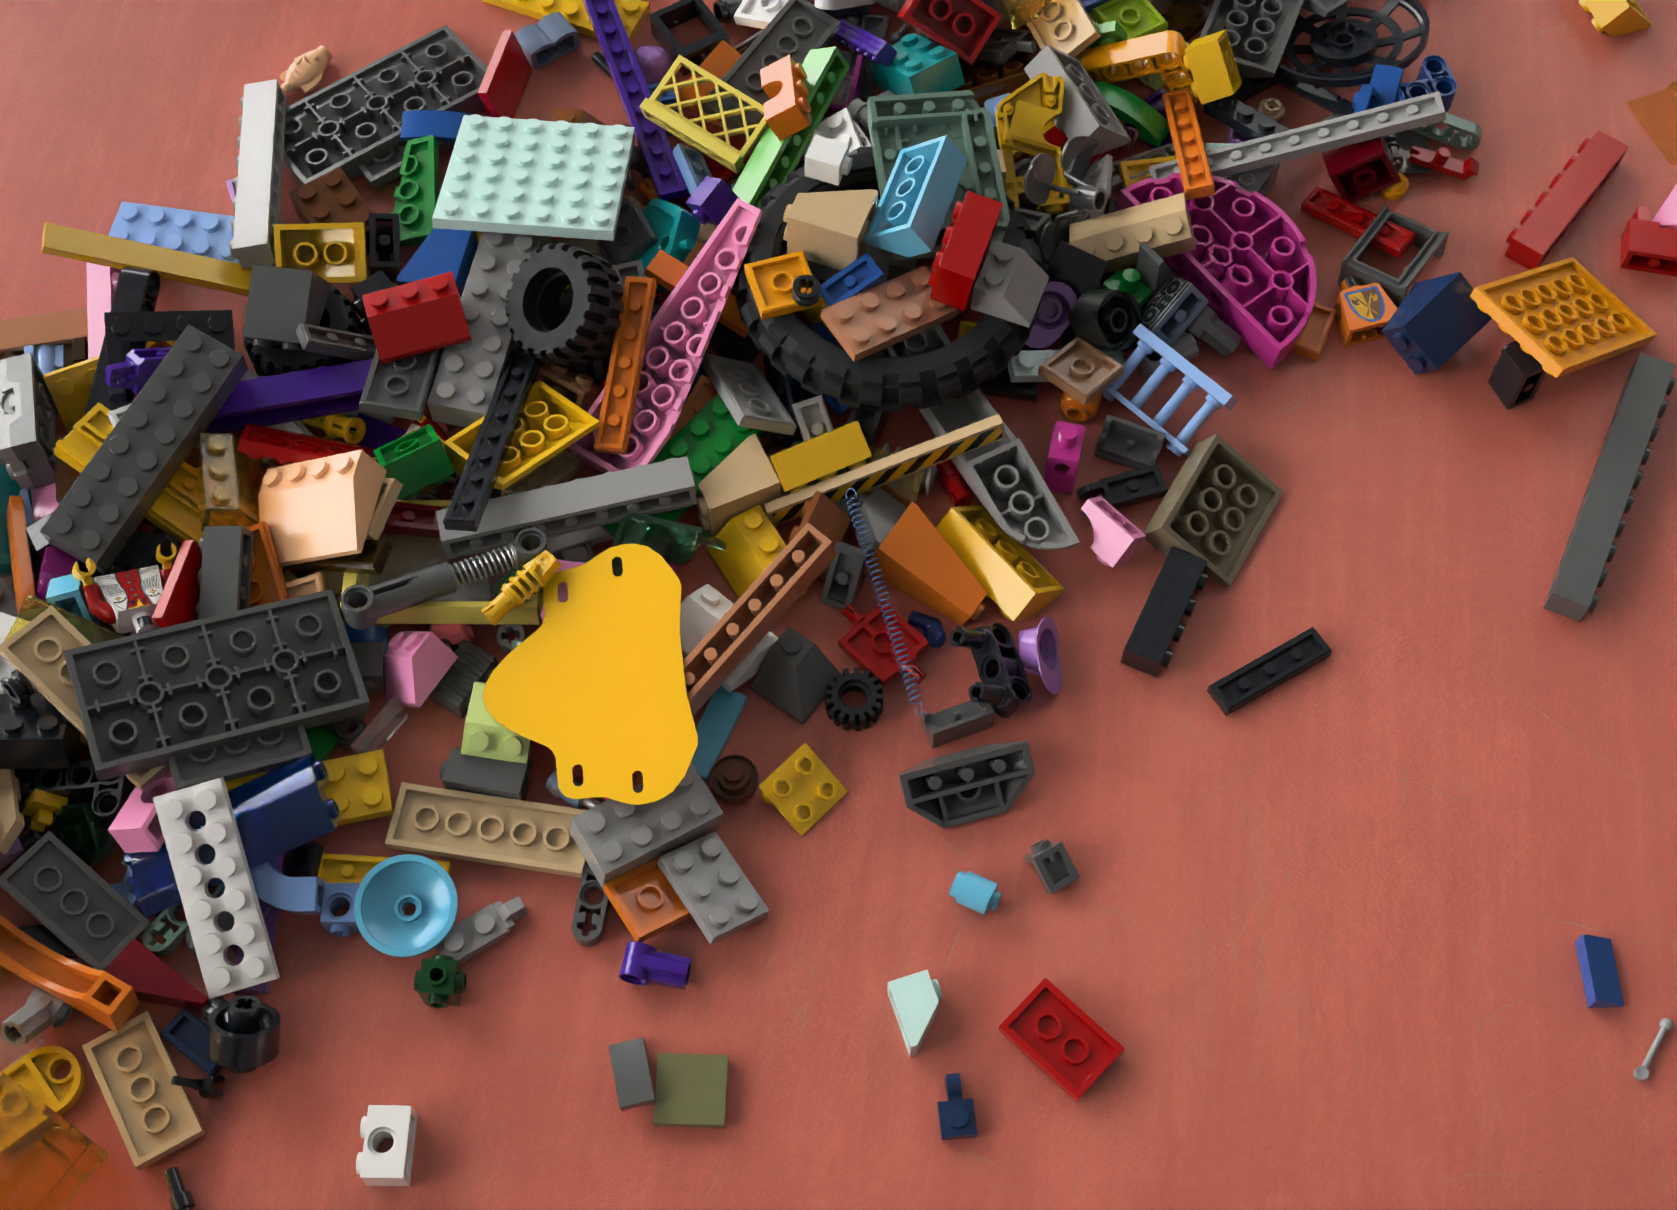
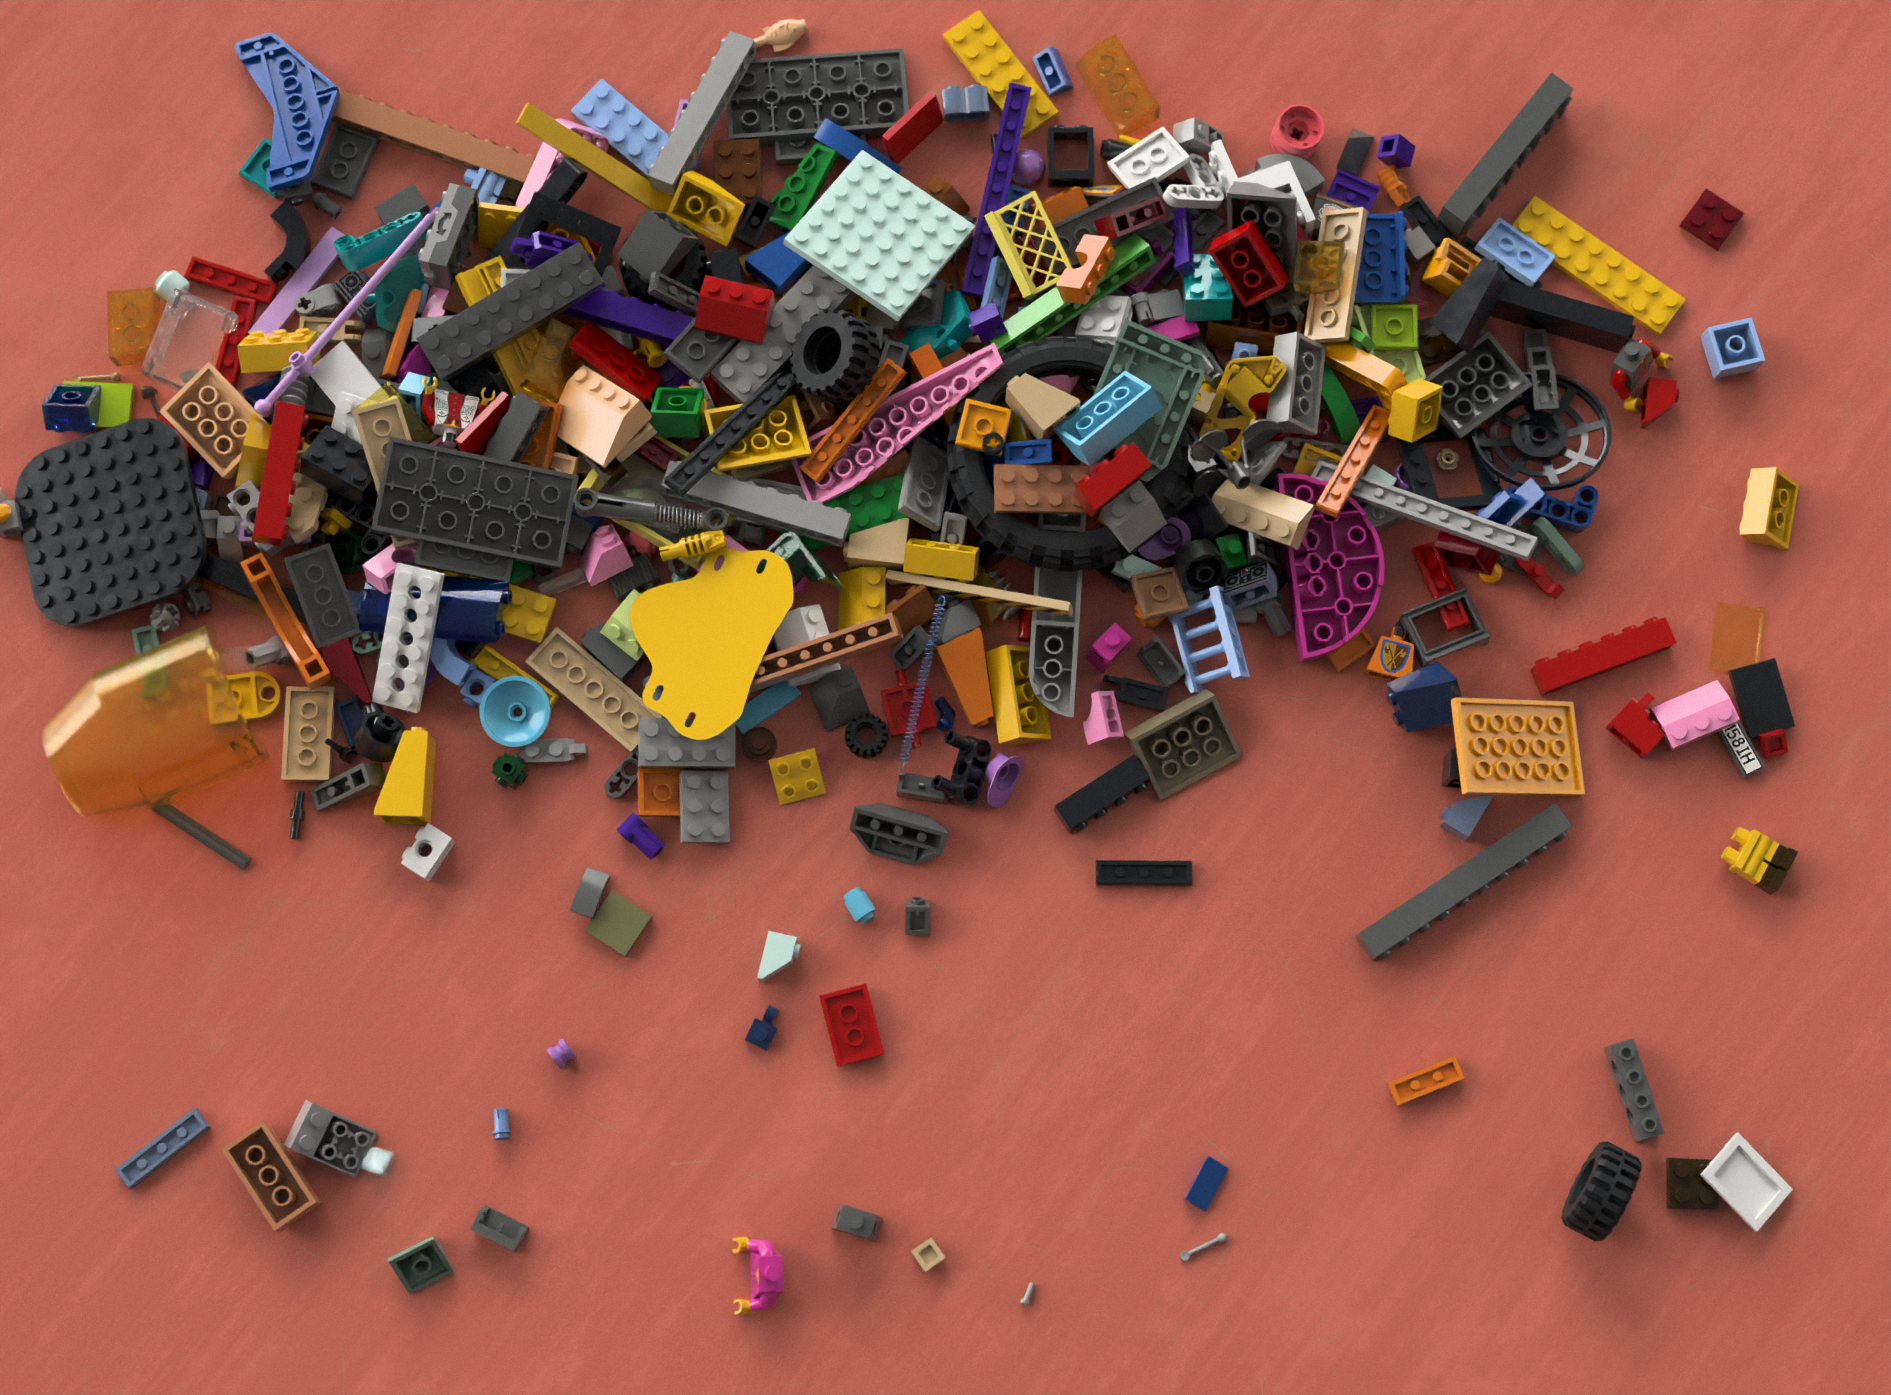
camera: 30 degrees right, 15 degrees up
(17, 686) = (353, 440): black bush -> none
(234, 1123) = (349, 786): none -> dark grey slope
(315, 1074) = (409, 783): none -> yellow slope
(797, 35) = (1131, 218): none -> dark red slope
(827, 160) = (1072, 348): white brick -> none
(1559, 421) = (1464, 816): none -> sand blue slope

